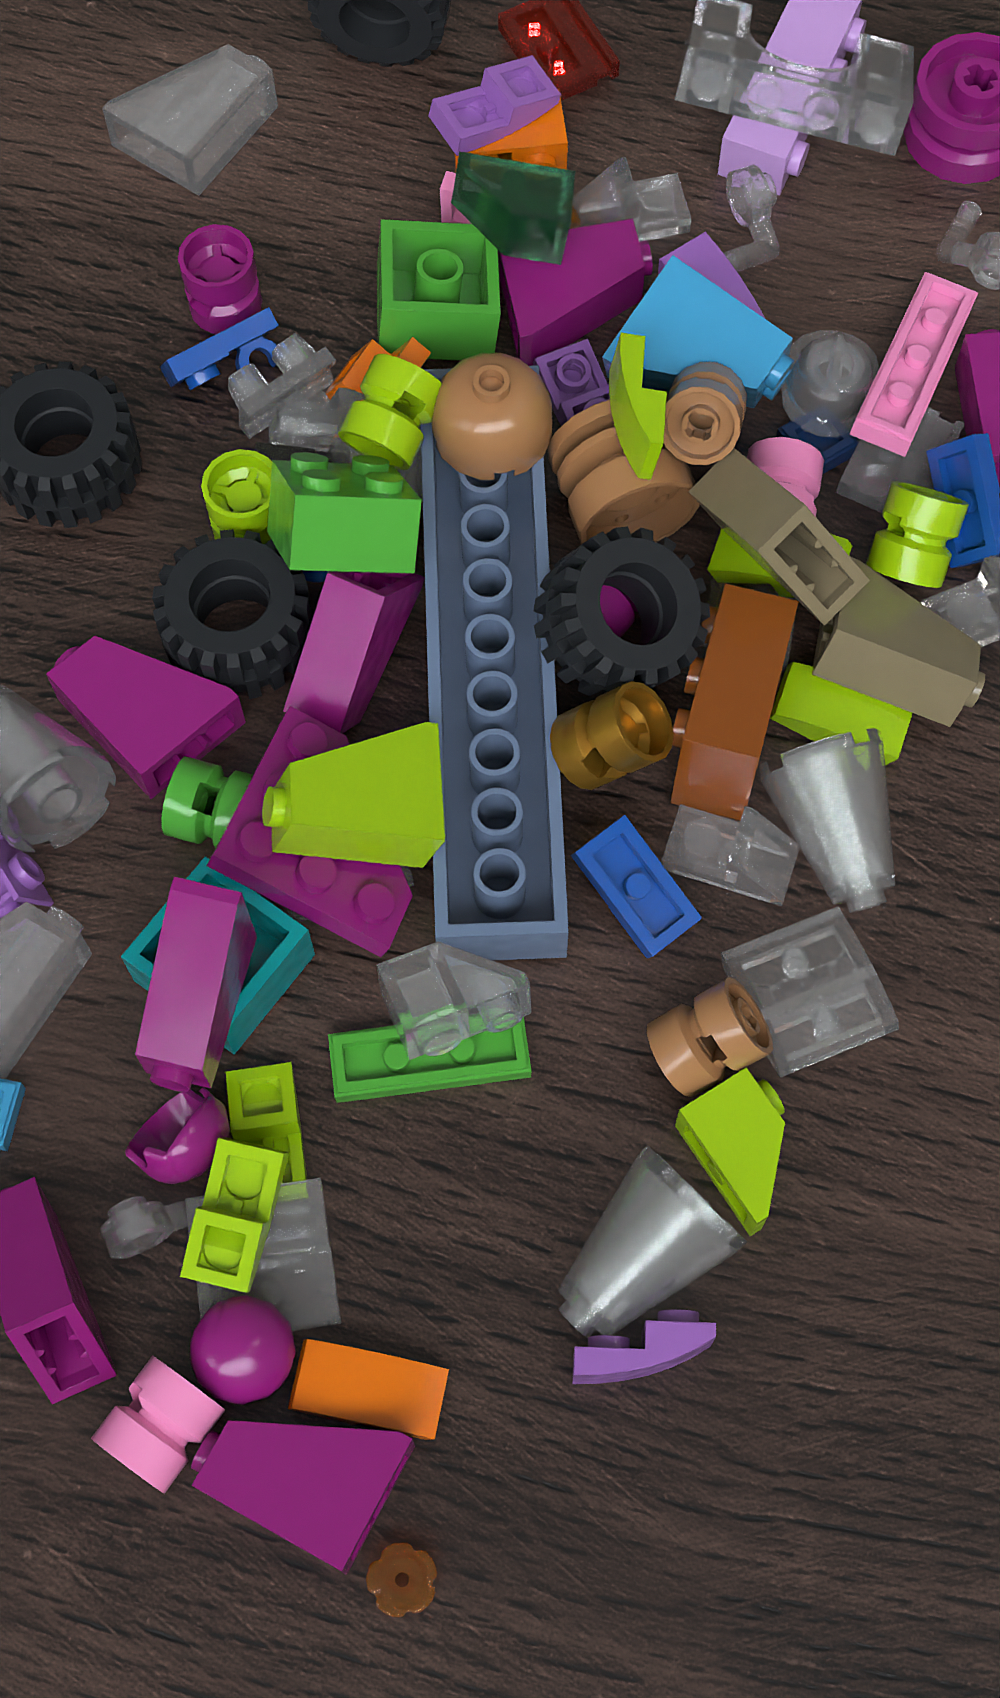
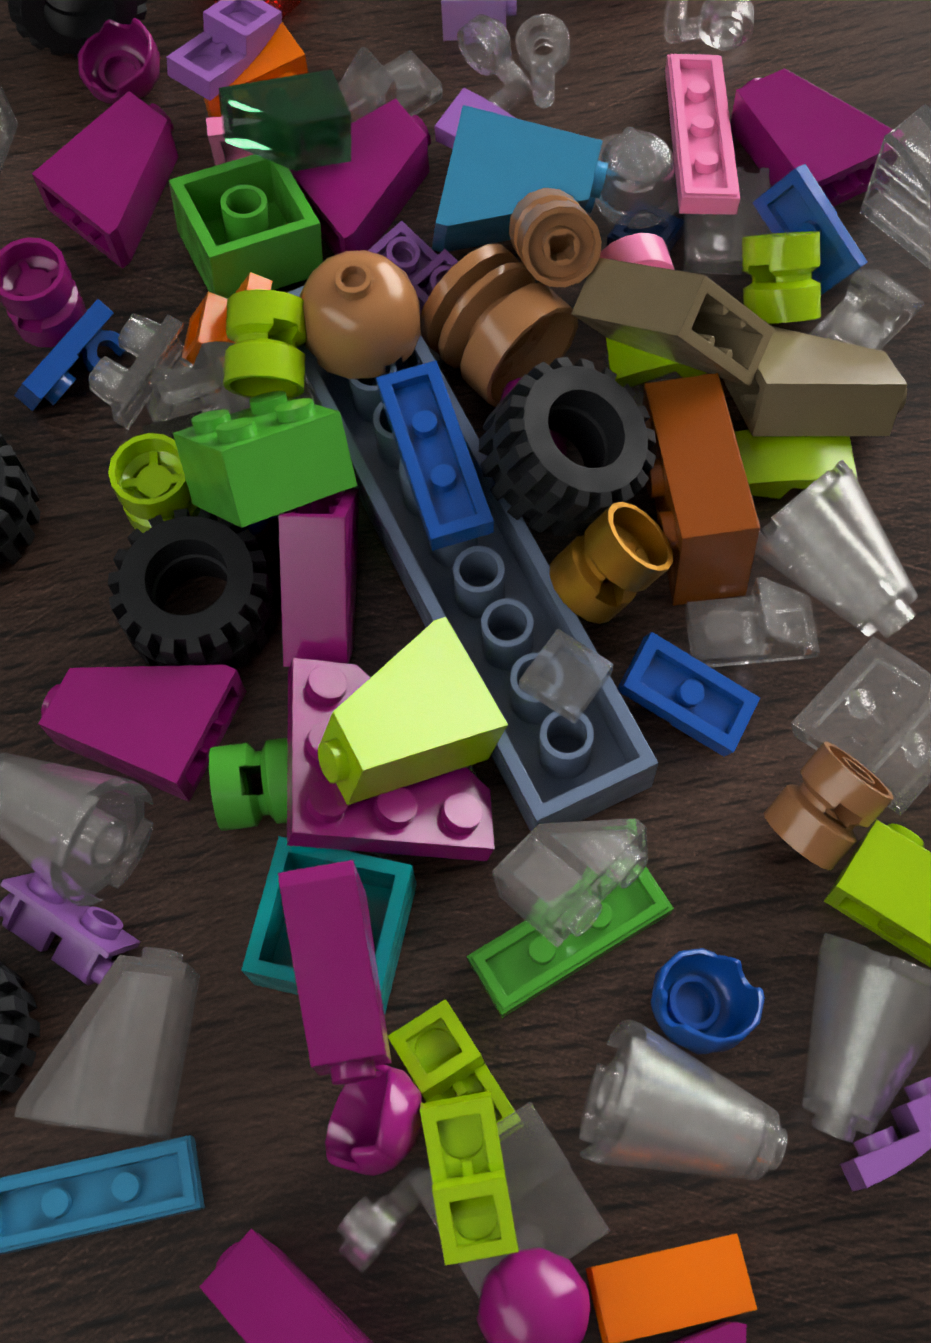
camera: 20 degrees left, 0 degrees up
(339, 192) = (111, 176): none -> magenta slope
(394, 84) = (119, 61): none -> magenta hair
(443, 1245) = (675, 1113): none -> clear cone
(497, 573) = (435, 455): none -> blue plate
(515, 1160) = (705, 1001): none -> blue hair
(521, 820) = (566, 676): none -> clear tile
(636, 410) = (499, 257): lime slope -> none
(792, 242) = (536, 32): none -> clear plate

